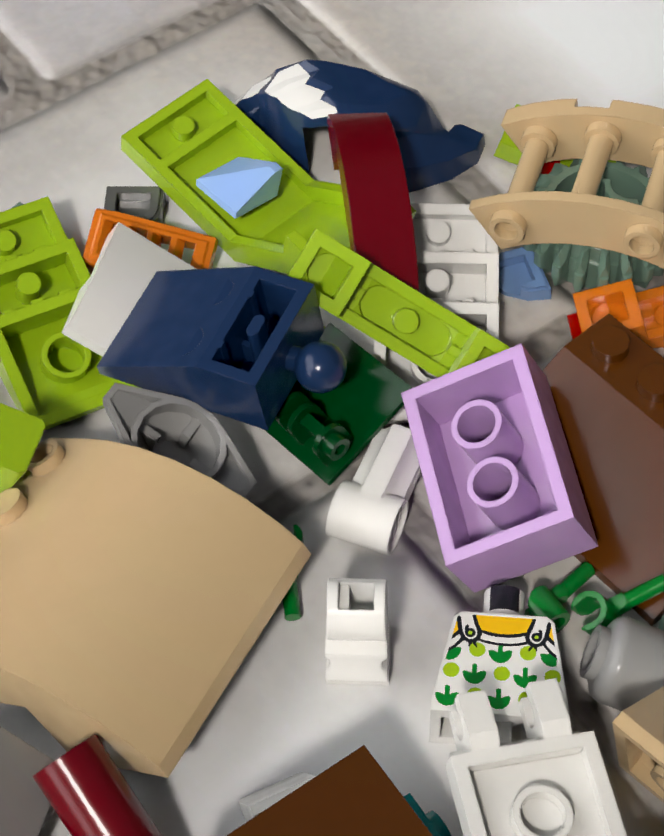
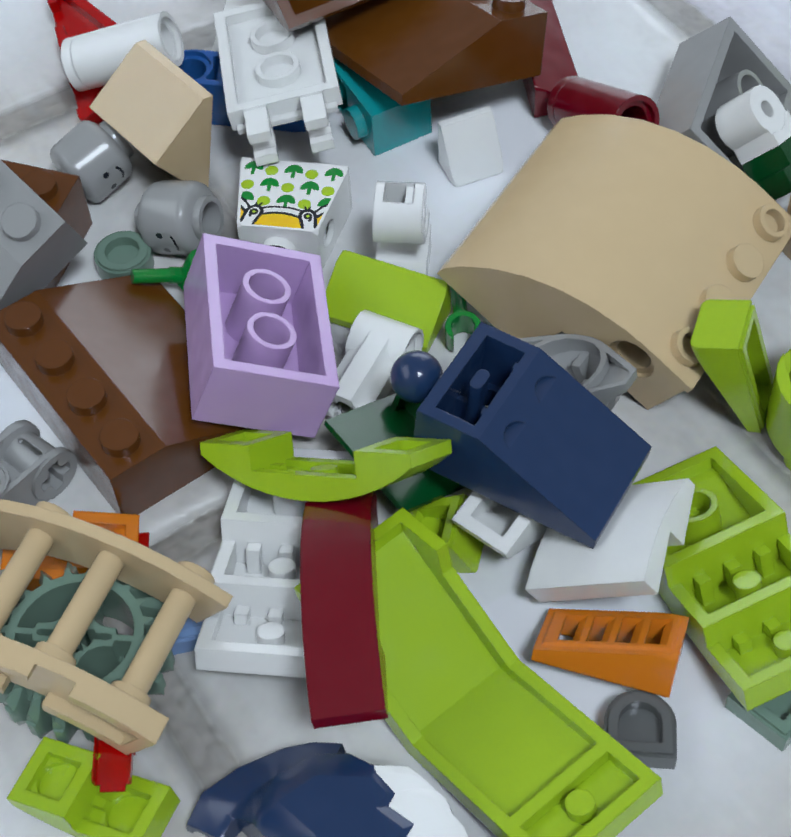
camera: 175 degrees left, 0 degrees up
(242, 184) = (504, 710): light blue slope -> none
(411, 587) = (387, 290): none -> lime slope

